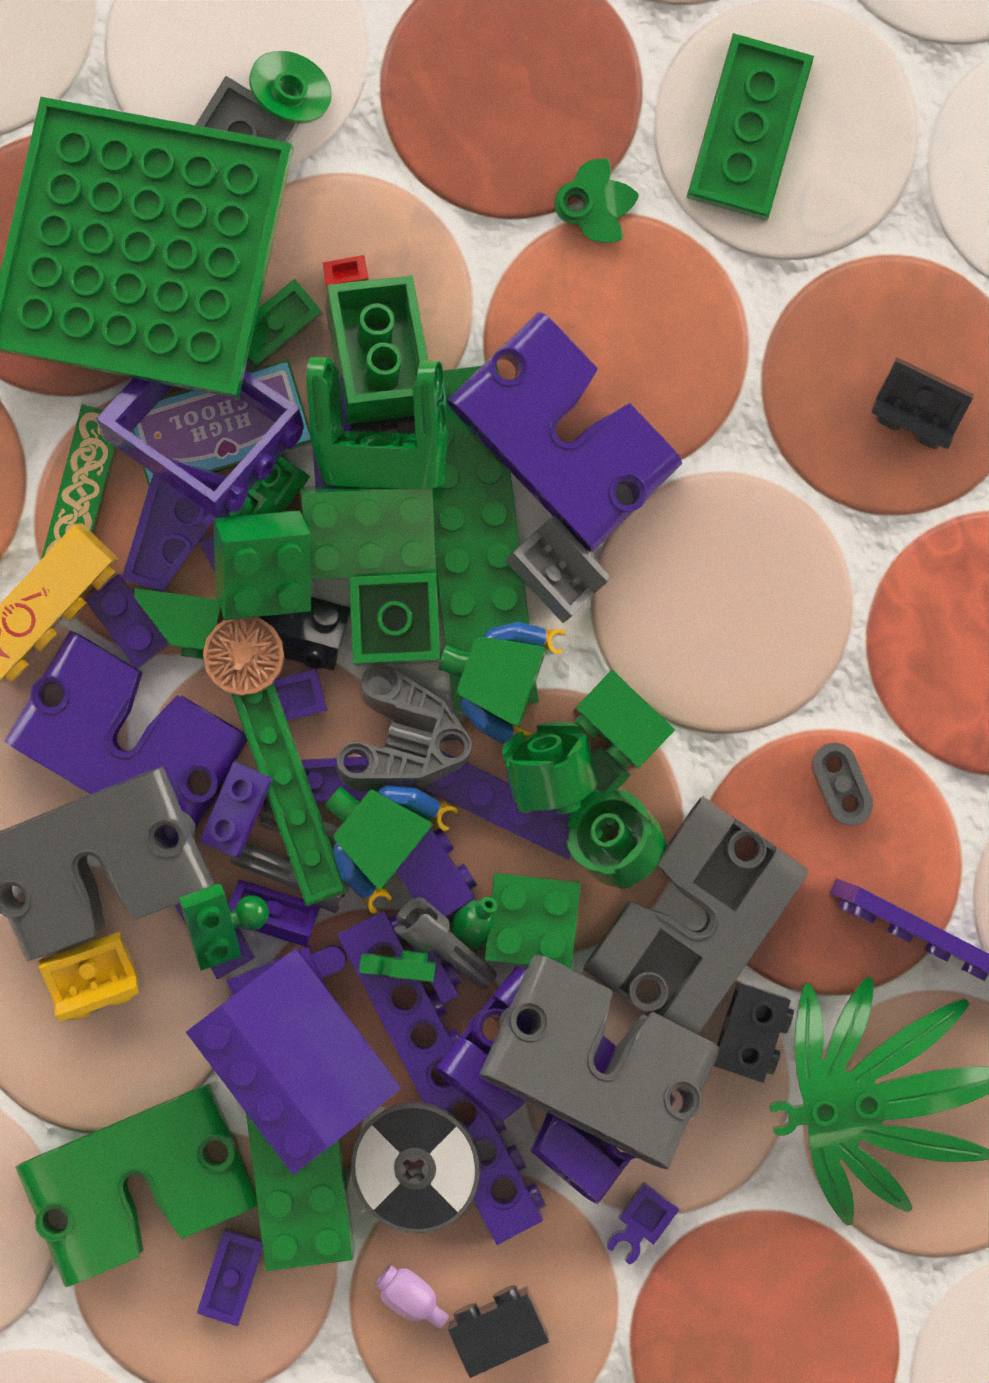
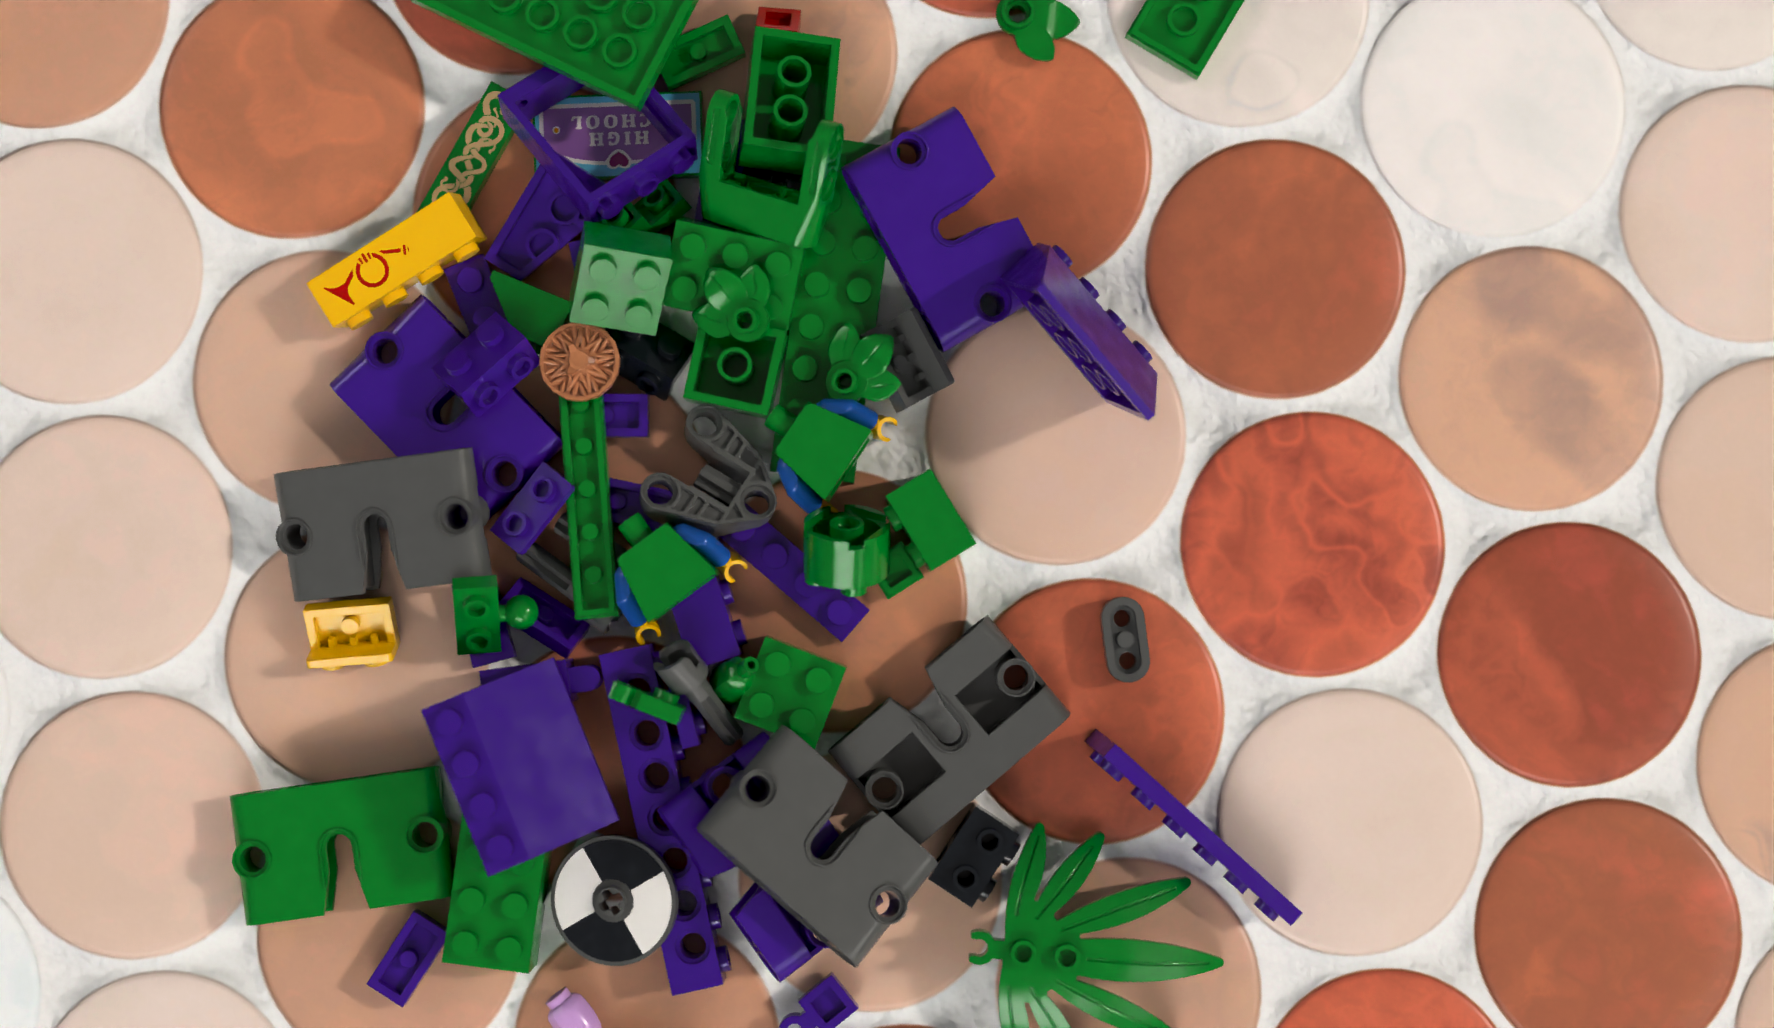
camera: 10 degrees right, 0 degrees up
(155, 681) = (487, 364): none -> dark purple bracket
(375, 555) = (730, 299): none -> green plate
(520, 583) = (865, 362): none -> green plate
(628, 856) = (892, 633): green brick -> none
(723, 495) = (1083, 329): none -> dark purple slope
(921, 404) = (1298, 294): black bracket -> none

